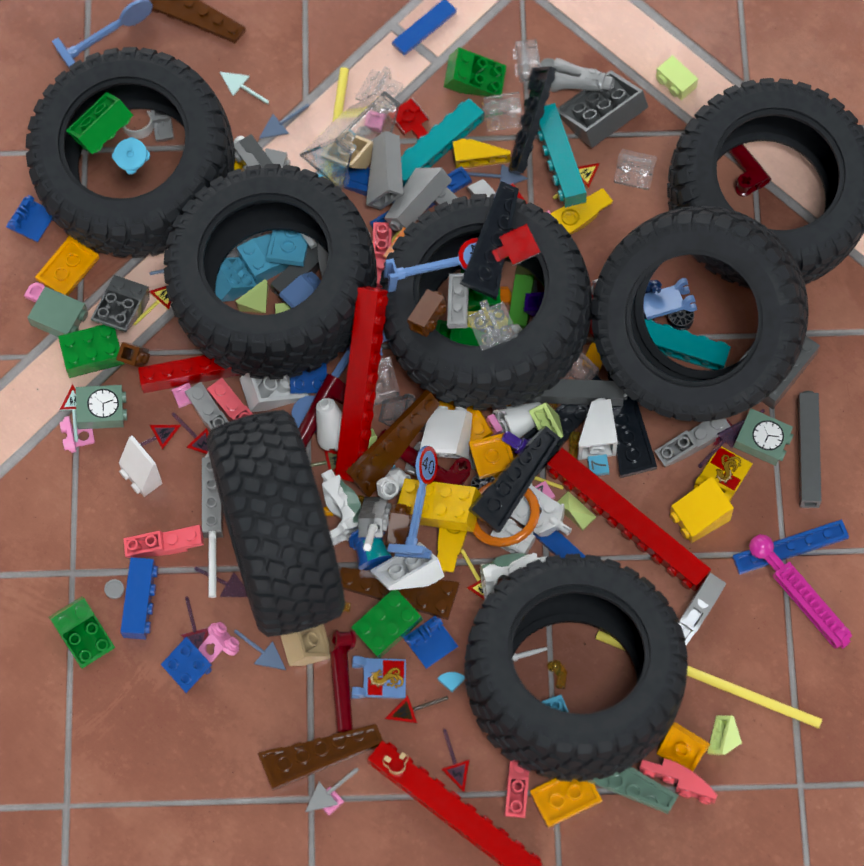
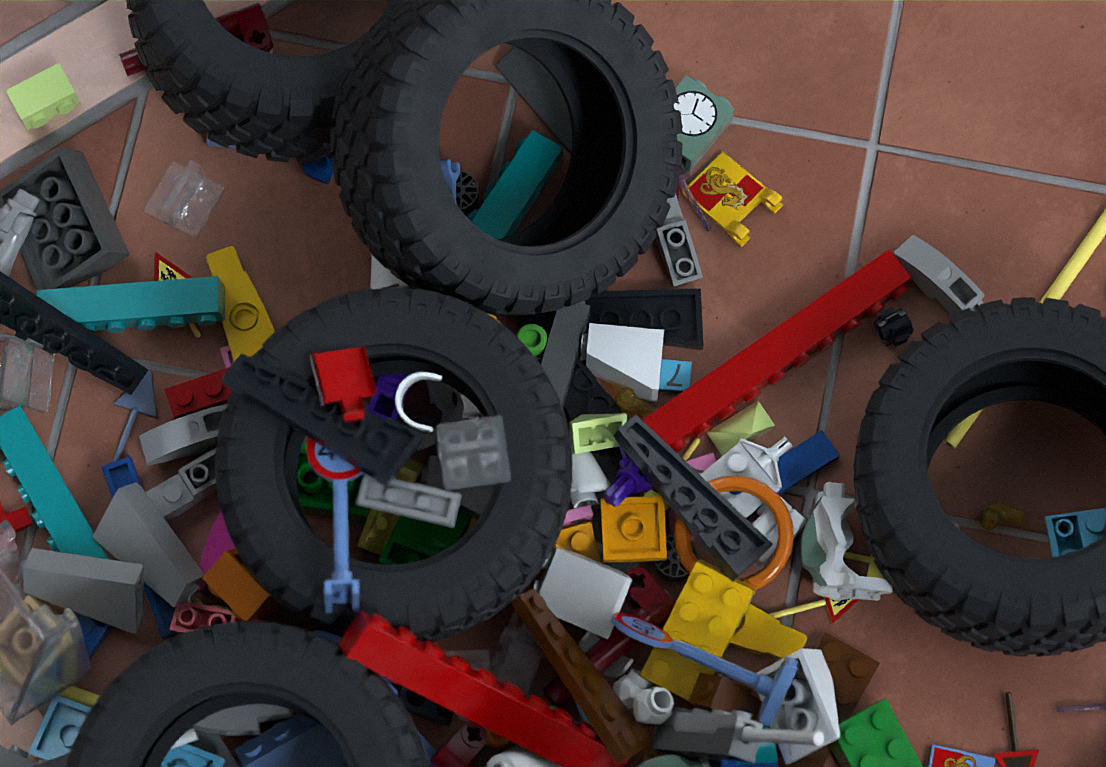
camera: 80 degrees left, 5 degrees up
(427, 313) = (420, 553): reddish brown brick -> none
(430, 642) = (914, 696): blue hinge -> none
(451, 680) = (981, 680): medium azure tile -> none
(474, 154) = (86, 439): yellow slope -> none
(512, 279) = (401, 390): none -> white helmet
(593, 371) = (533, 338): none -> bright green tile
(663, 583) = (893, 327): none -> black gear
(702, 510) = (790, 239): yellow slope -> none
(794, 545) = (867, 133): blue tile -> none
(802, 593) = (949, 132): dark pink gear -> none
(809, 450) = (733, 66): dark grey brick -> none

